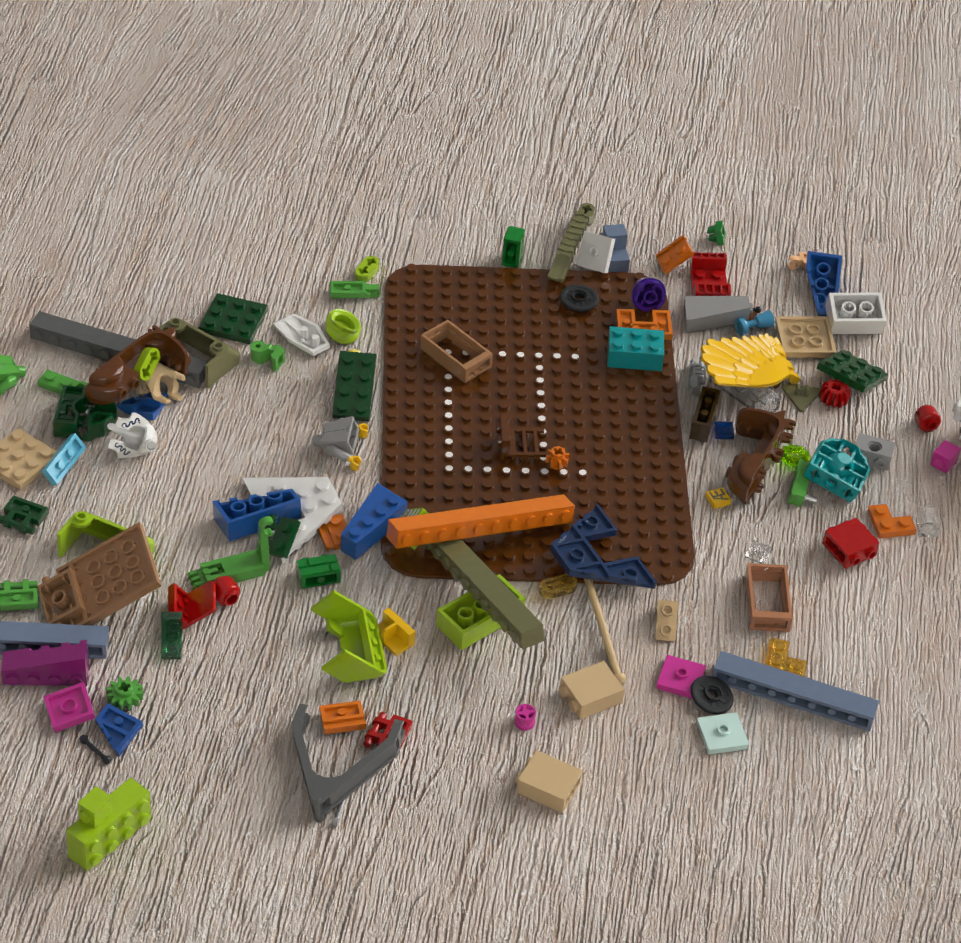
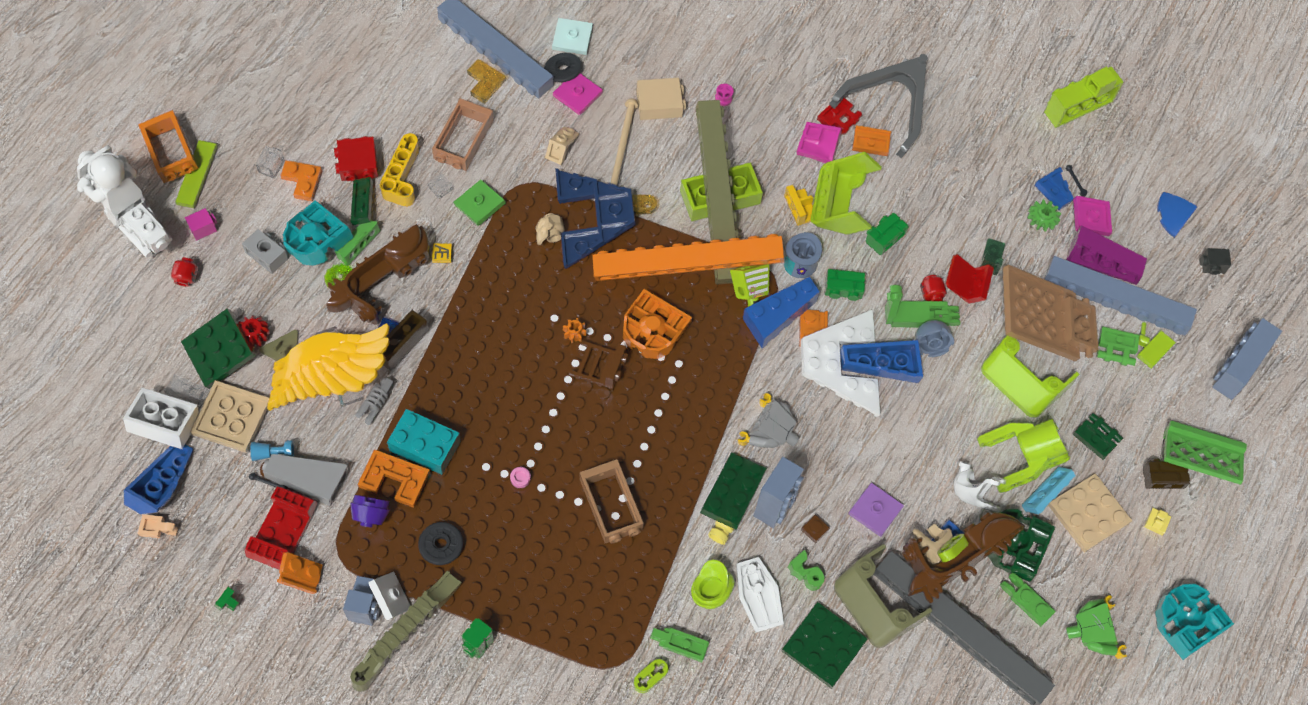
camera: 160 degrees left, 20 degrees up
(87, 474) = (1039, 445): none -> lime piece
(212, 544) = (934, 338): none -> sand blue cylinder
(221, 412) = (876, 509): none -> medium lavender plate
(271, 387) = (815, 529): none -> reddish brown plate
(284, 536) = (870, 318): dark green plate -> none
(291, 628) = (886, 234): none -> green brick
(314, 369) = (779, 493): none -> sand blue brick
(371, 574) = (802, 255): none -> sand blue hat
(400, 697) = (819, 142): none -> dark pink plate
(475, 478) = (644, 309): none -> orange connector
(541, 353) = (520, 477): none -> bright pink tile
(548, 781) = (730, 35): tan brick -> none
(629, 527) = (549, 228): none -> tan head
(711, 544) = (479, 202): none -> bright green plate
(802, 533) = (402, 168): none -> yellow beam
(817, 508) = (361, 201): none -> dark green tile
(857, 347) = (187, 390): none -> clear plate

